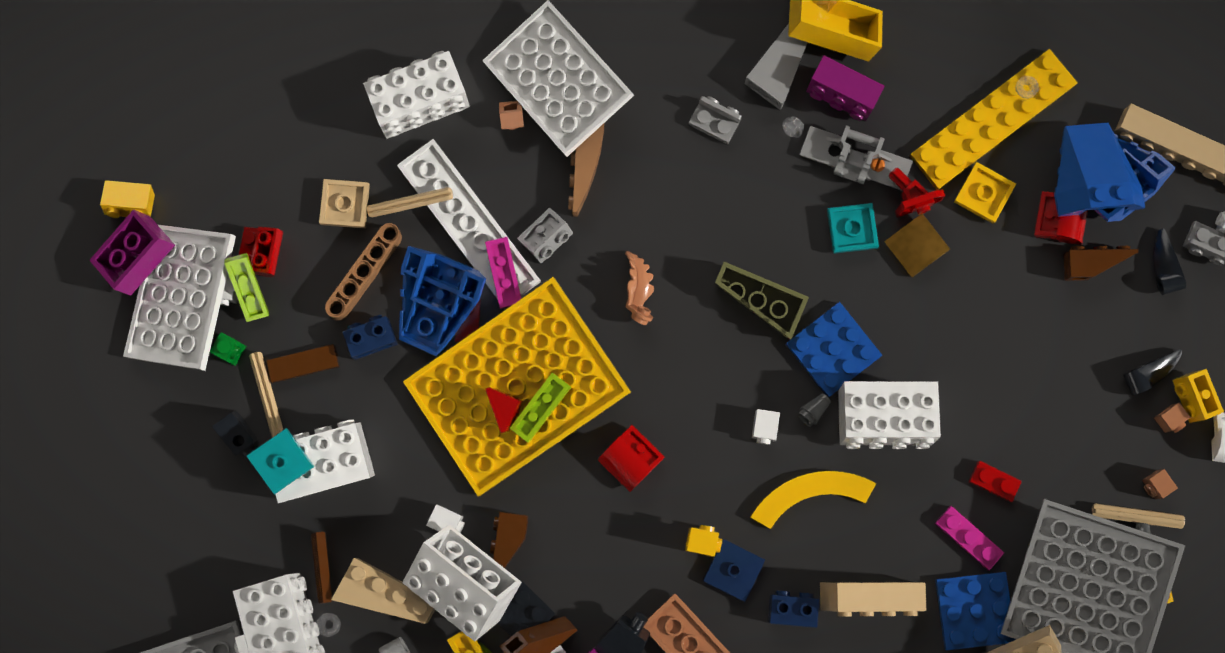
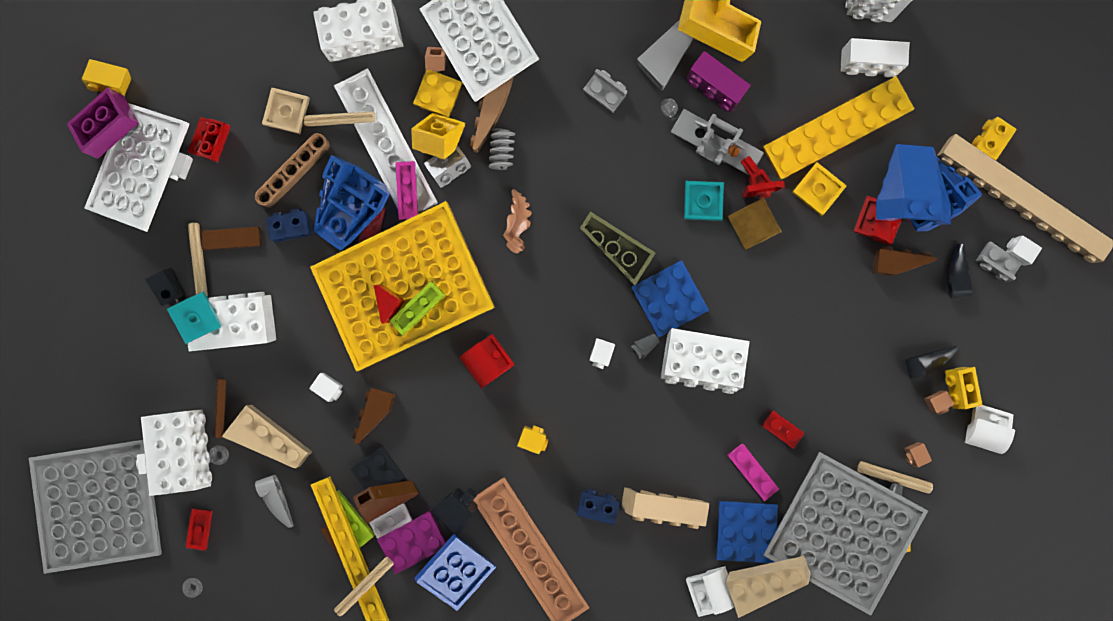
camera: 10 degrees right, 5 degrees up
(228, 348) = (170, 216): green brick -> none
(246, 287) = (192, 167): lime plate -> none
(461, 582) = (328, 440): white brick -> none
(519, 154) = (438, 93): none -> yellow plate
(528, 203) = (437, 135): none -> yellow slope
(605, 206) = (501, 149): none -> light grey piece
(734, 570) = (555, 466): dark blue plate -> none
(808, 486) = (629, 408): yellow tile -> none
(1020, 31) = (874, 57): none -> white brick
(1031, 82) = (874, 101): clear plate -> none
(1176, 100) = (994, 137): none -> yellow brick

